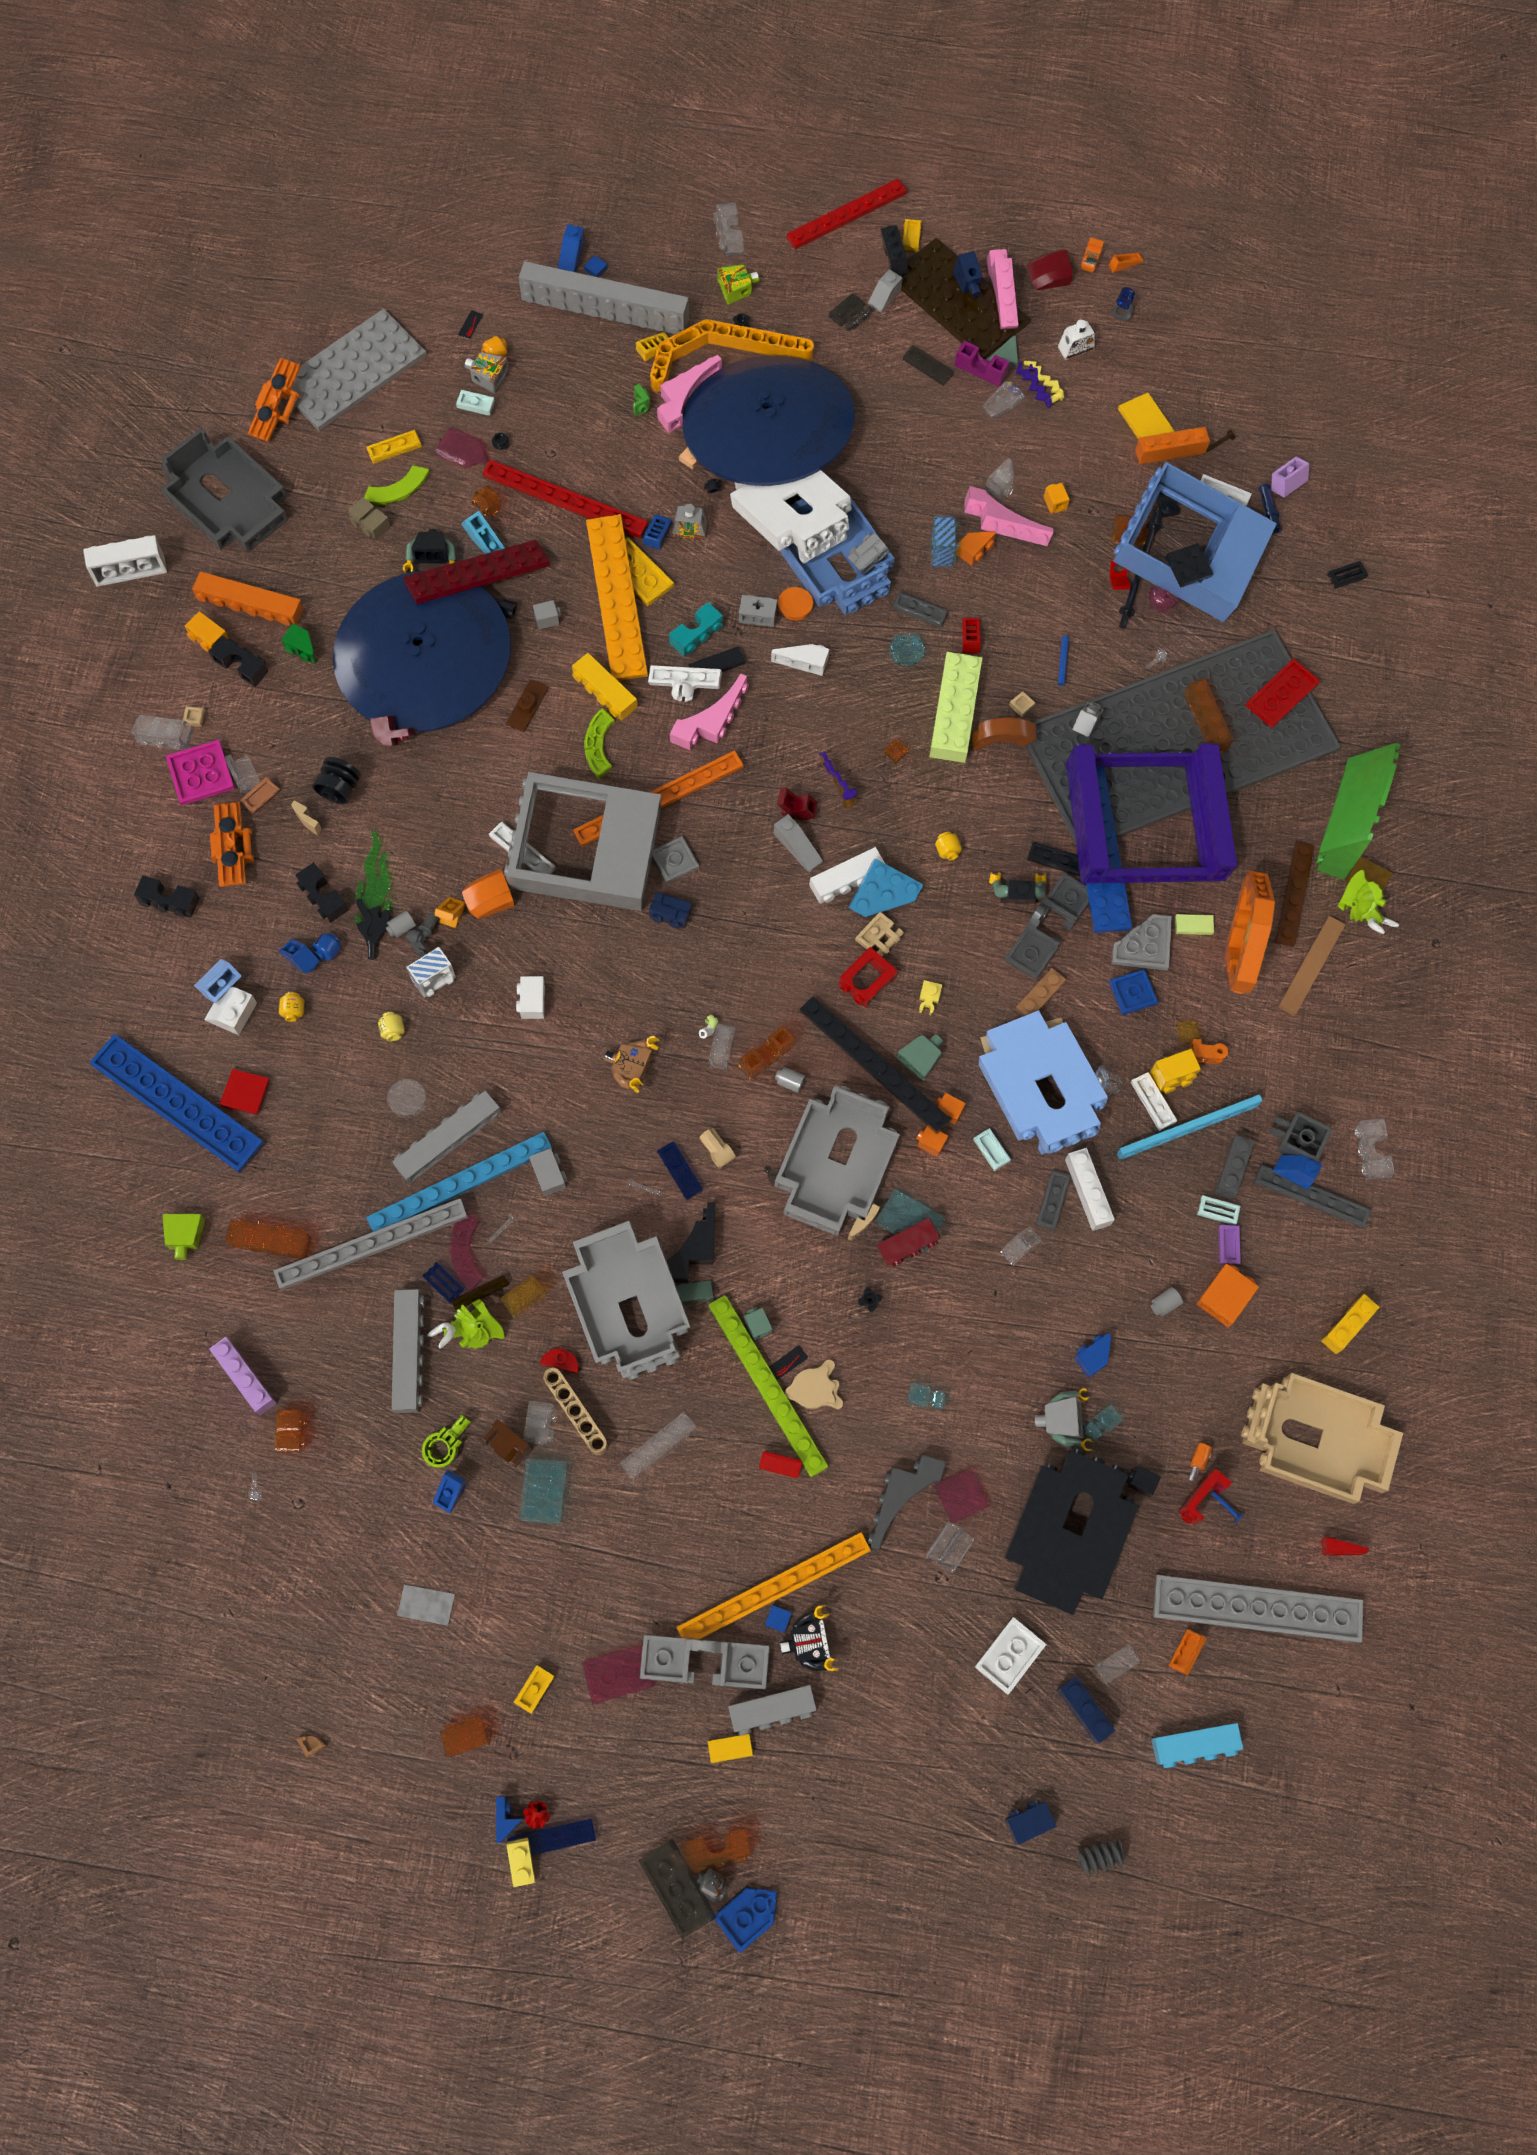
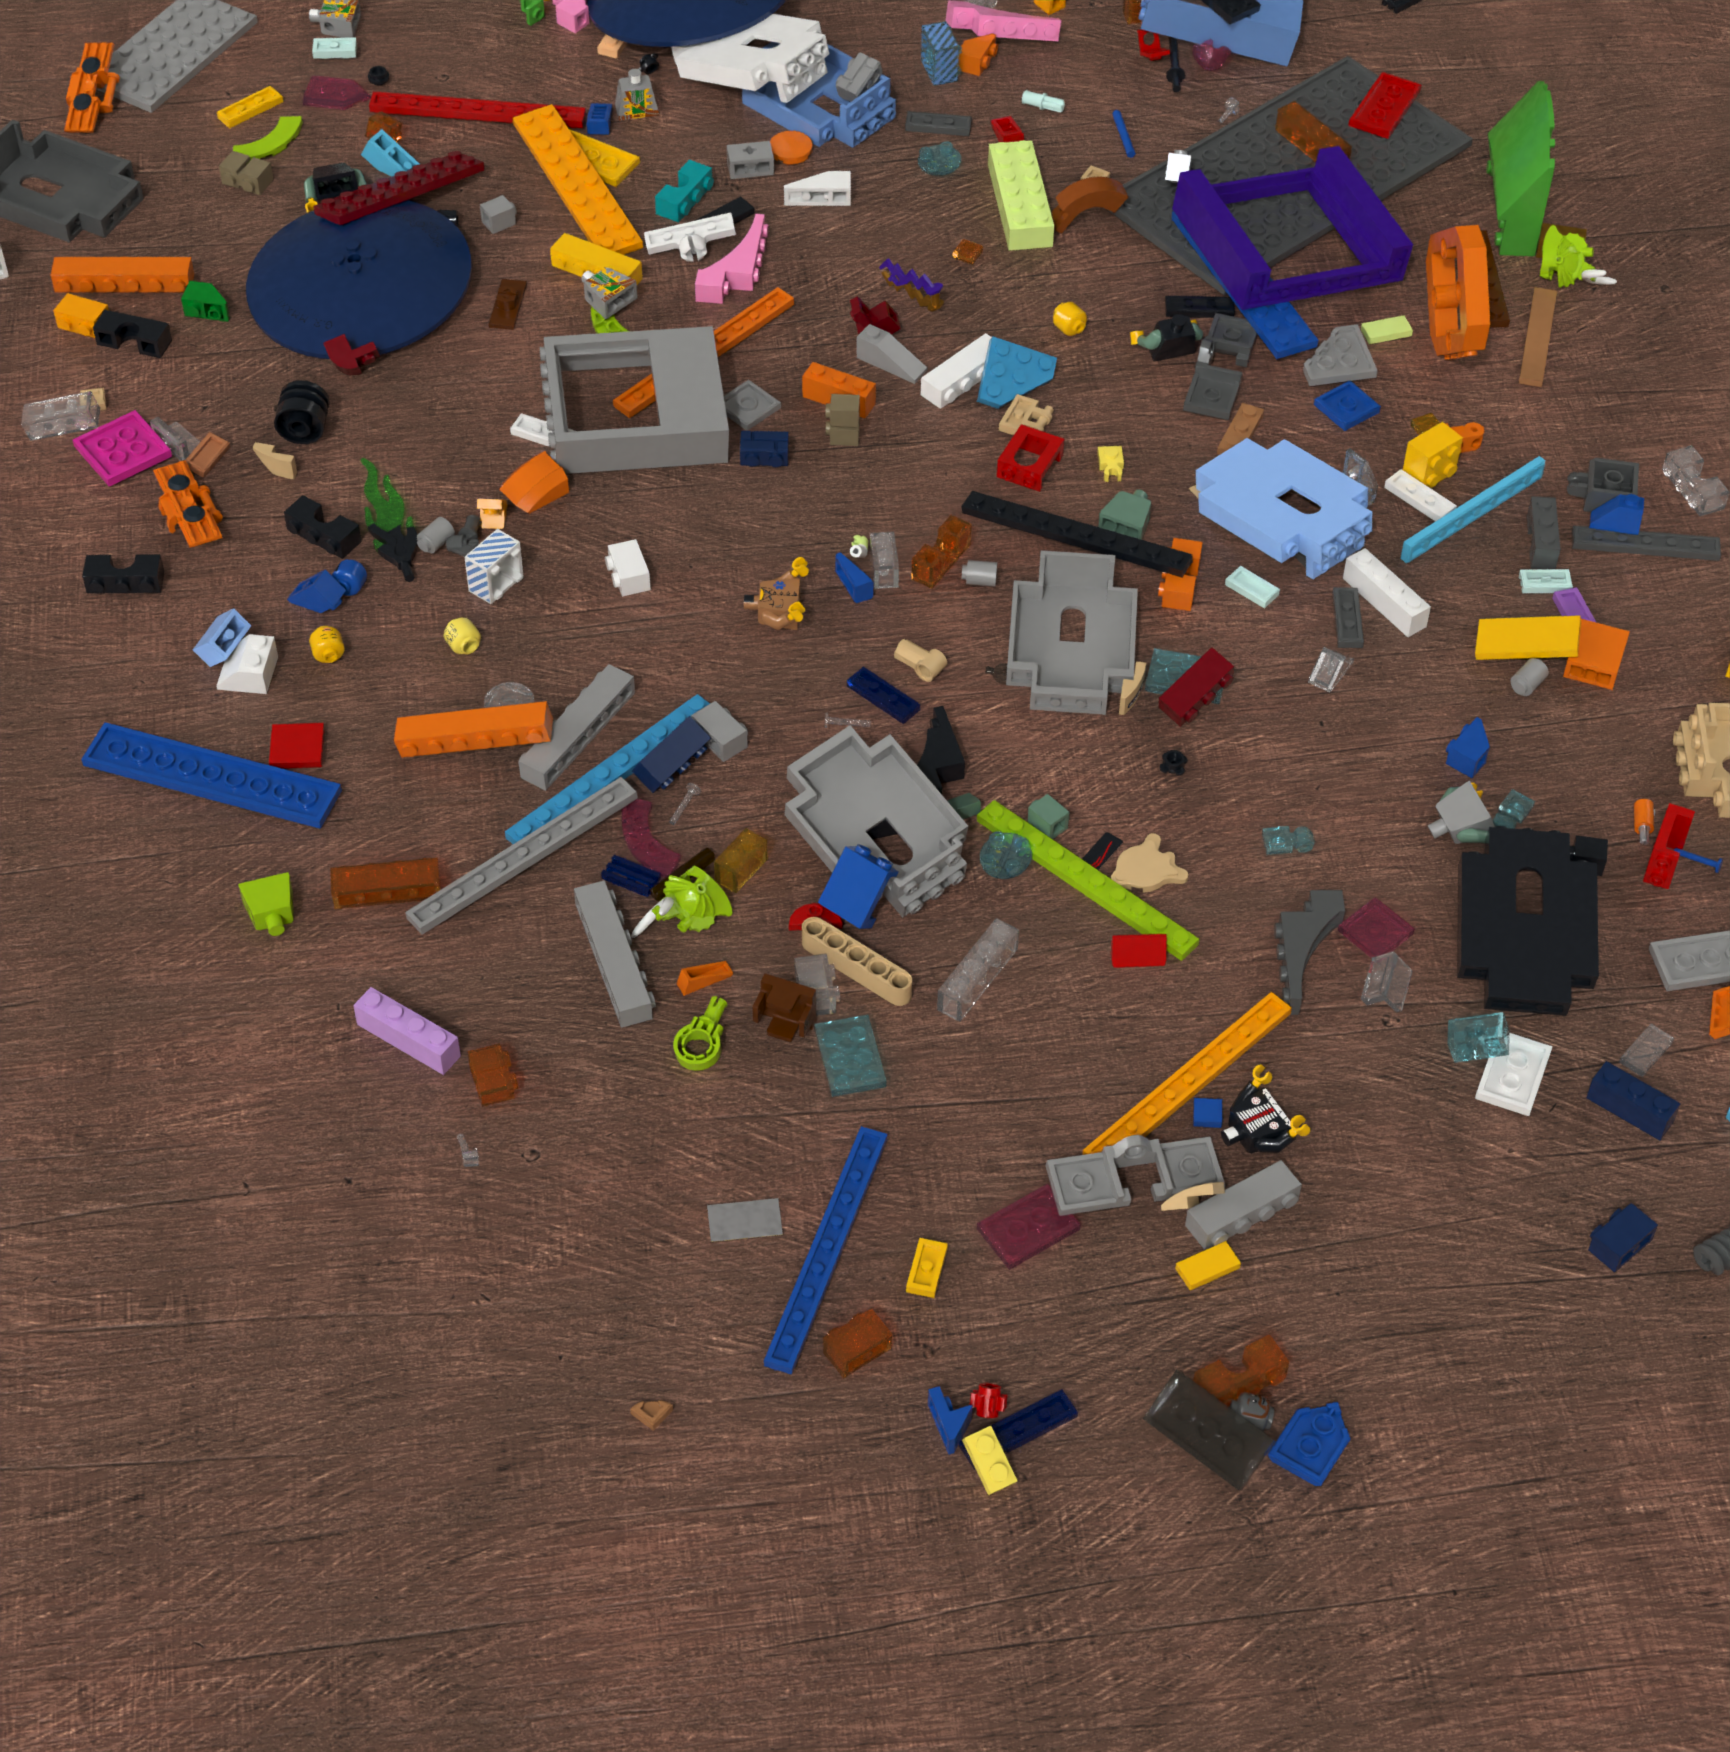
camera: 15 degrees left, 20 degrees down
(368, 1123) = (473, 729): none -> orange brick
(449, 1491) = (728, 1082): blue slope -> none
(464, 1388) = (701, 976): none -> orange piece
(470, 1651) = (825, 1251): none -> blue plate
(505, 1186) = (672, 755): none -> dark blue brick
(594, 1353) = (857, 885): none -> blue panel
(602, 721) = (608, 291): none -> light grey torso
(695, 1062) = (855, 580): none -> blue slope
(715, 1348) = (1005, 855): none -> clear light blue dish
(736, 903) = (844, 419): none -> dark tan piece
(738, 1695) = (1189, 1197): none -> tan slope
(745, 868) = (822, 381): none -> orange brick
(984, 1615) = (1478, 1037): none -> clear light blue brick
(1010, 610) = (1043, 101): none -> light aqua axle
(1180, 1267) = (1528, 637): none -> yellow tile

